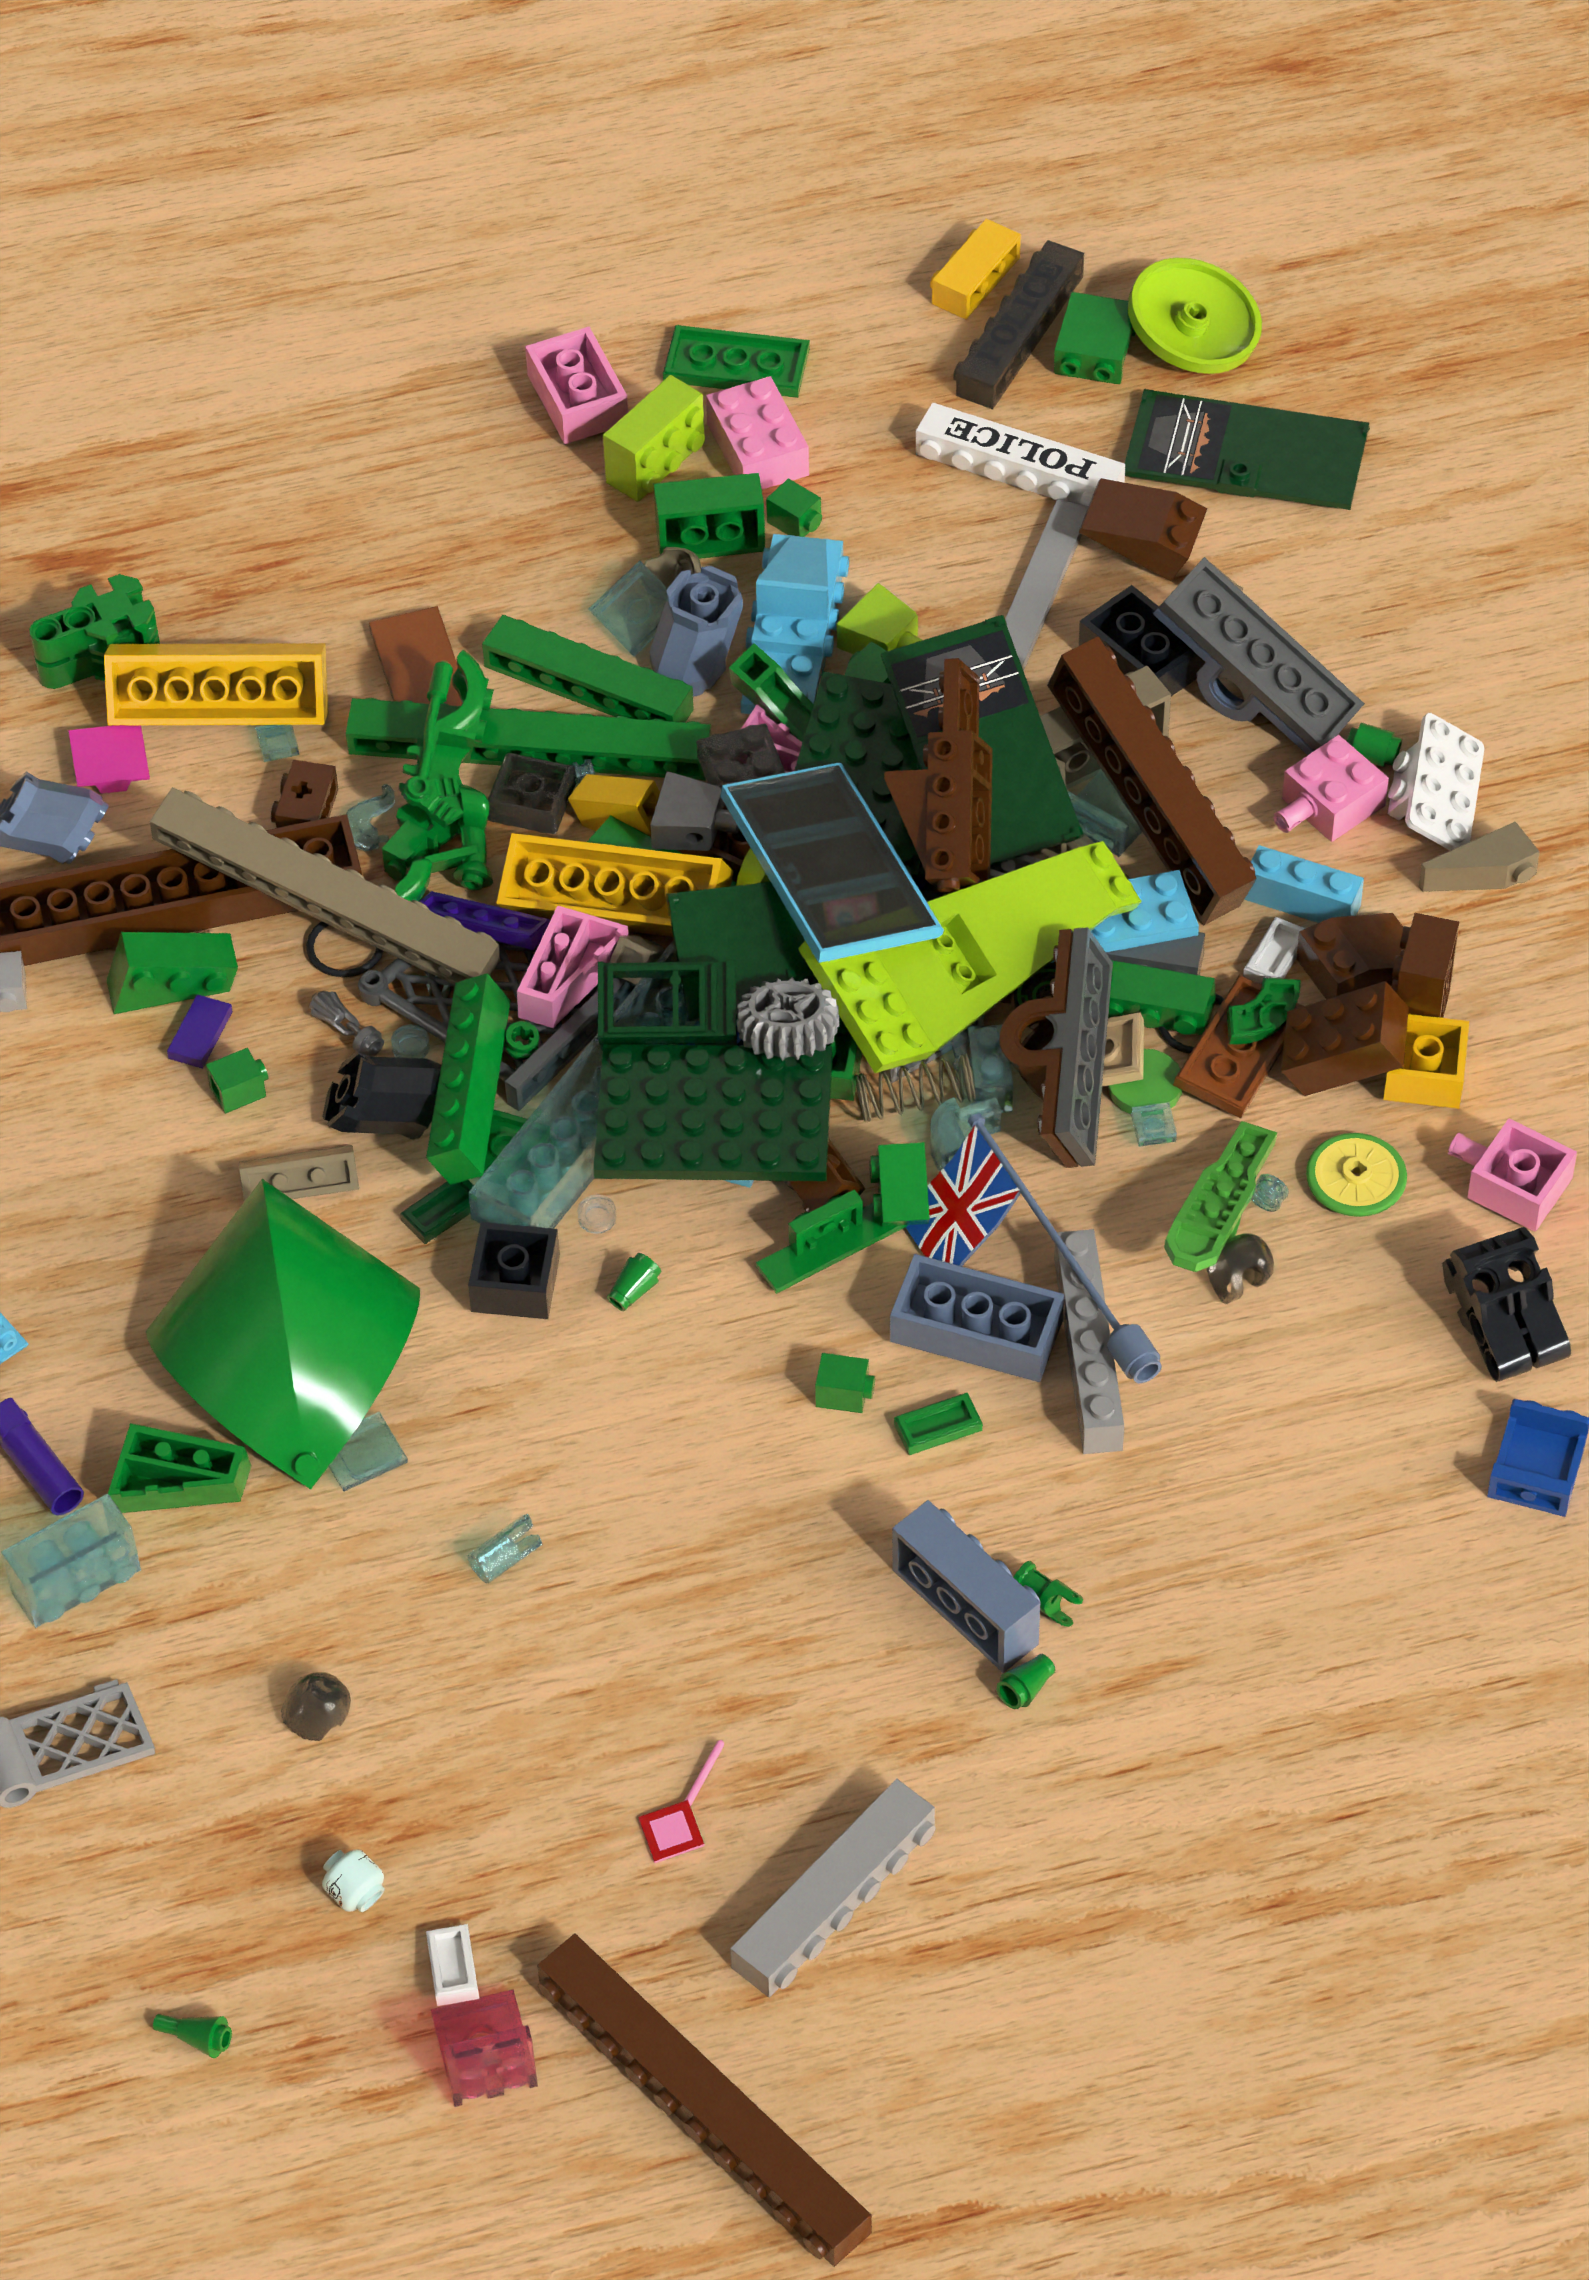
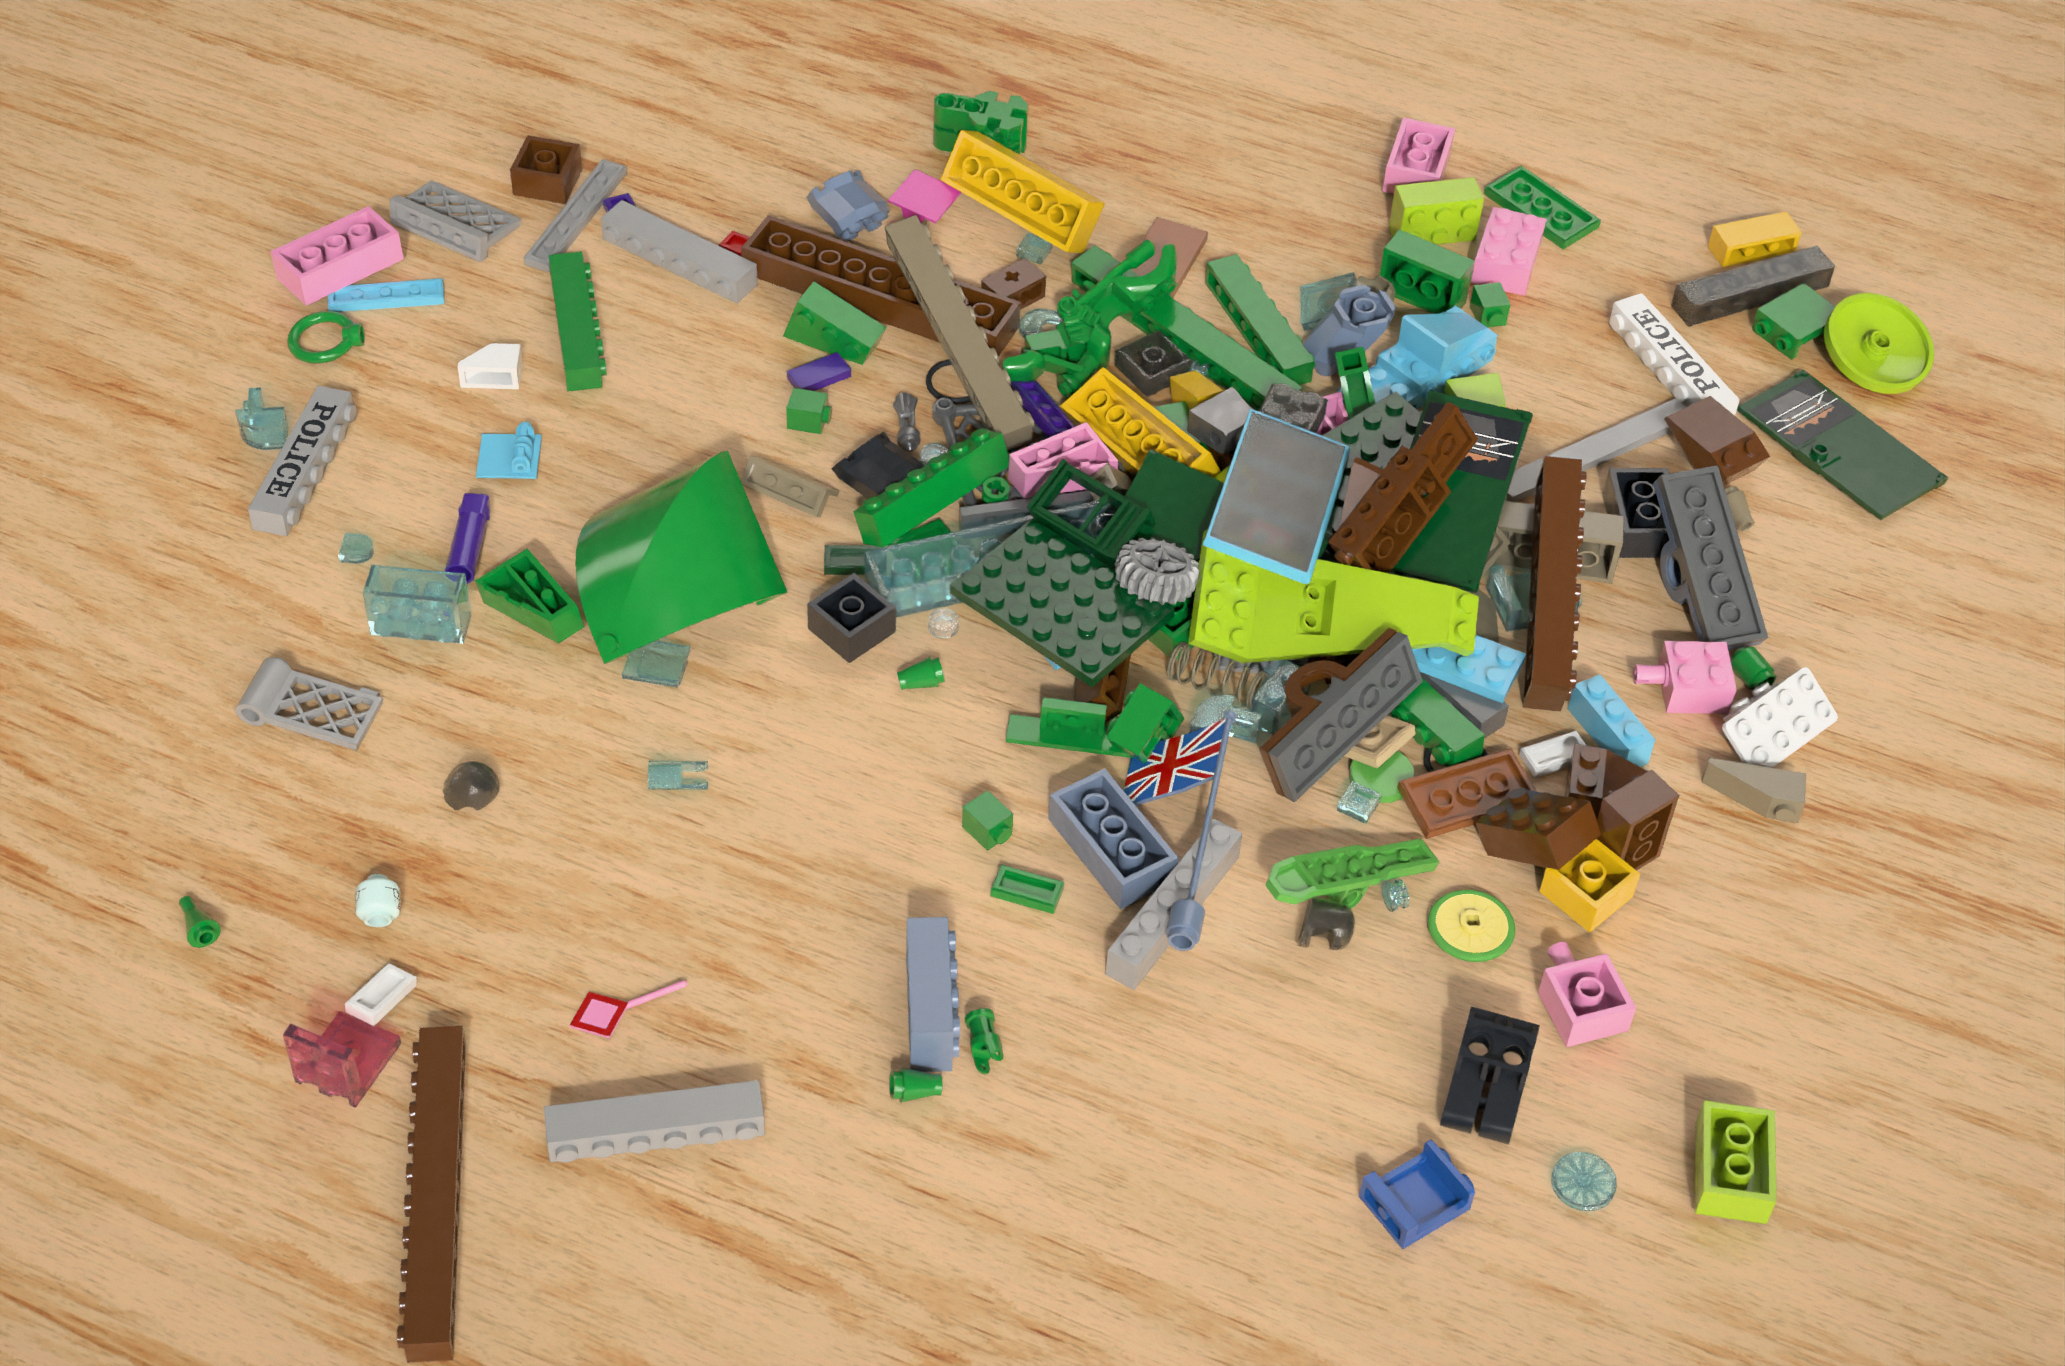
camera: 35 degrees right, 5 degrees down
(1263, 1014) = (1499, 781): green tile -> none

